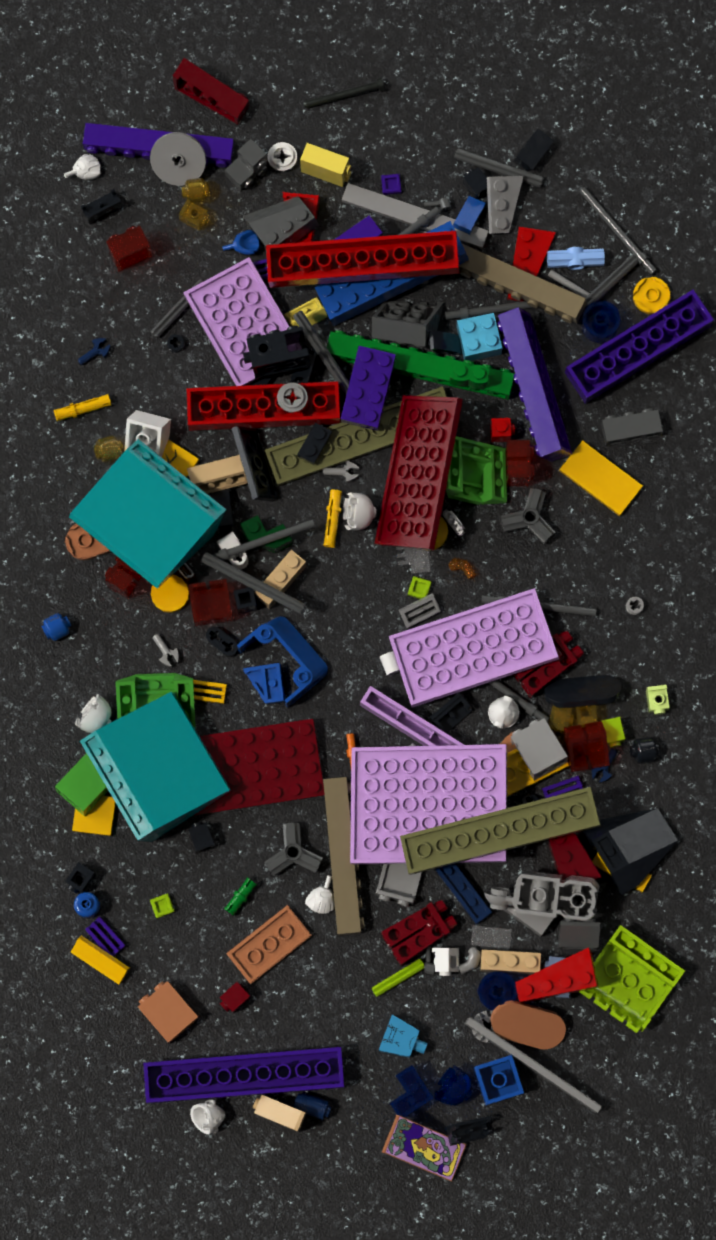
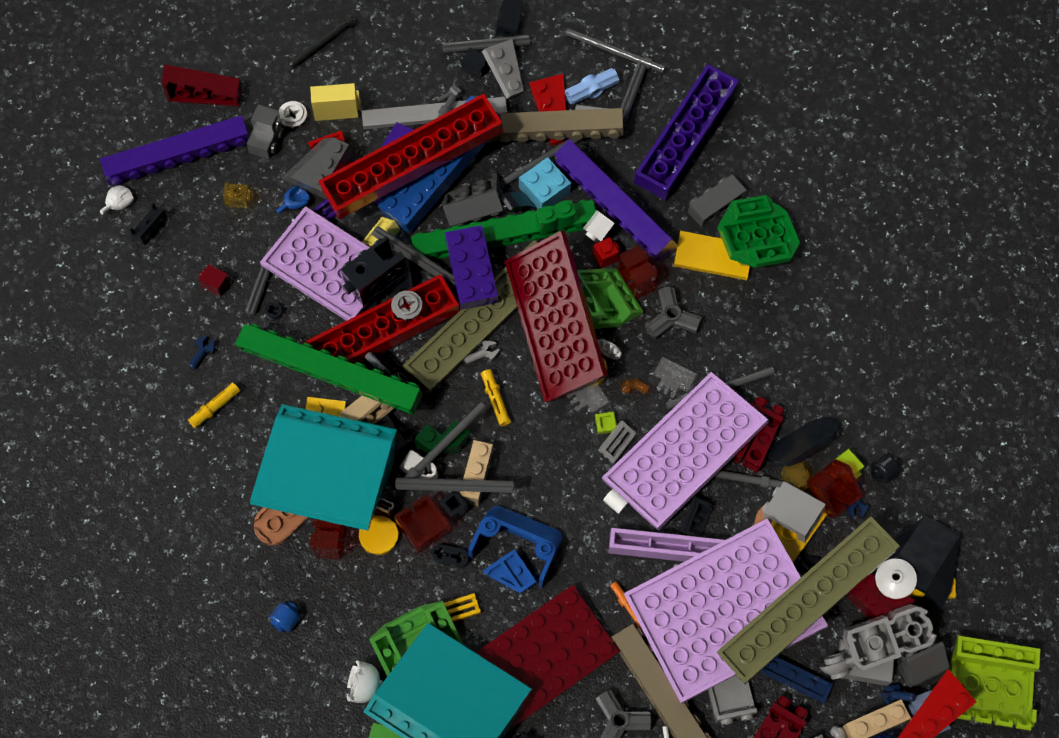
camera: 30 degrees left, 10 degrees down
(108, 448) = (256, 430): clear yellow head -> none
(128, 248) = (191, 246): clear red piece -> none
(135, 289) = (214, 280): none -> dark red brick
(149, 429) = (286, 392): white slope -> none
(165, 153) = (187, 144): light grey piece -> none
(165, 650) = (401, 590): light grey bar -> none
(194, 425) = (329, 369): none -> green brick
(196, 190) = (228, 172): clear yellow head -> none
(314, 443) = (446, 338): black plate -> none
(358, 511) = (515, 379): white cylinder -> none
(391, 184) = (400, 96): dark purple tile -> none
(469, 215) = (482, 85): blue tile -> none
(491, 937) = (843, 709): clear tile -> none
(501, 576) = (673, 377): none -> clear hinge
(503, 712) = (741, 495): white helmet -> none
(505, 402) = (598, 226): none -> white brick
(541, 945) = (894, 692): none -> dark blue bar
(575, 779) = (844, 529): dark purple tile -> none
(581, 720) = (821, 460): clear yellow brick -> none
(595, 313) = (642, 126): clear blue brick -> none
(599, 857) = (892, 588): none -> white dish
(632, 600) = (799, 353): light grey bush -> none
(651, 295) = (671, 89): yellow tile -> none
(657, 691) = (868, 425): yellowish green brick -> none
(661, 466) = (758, 232): none -> green piece

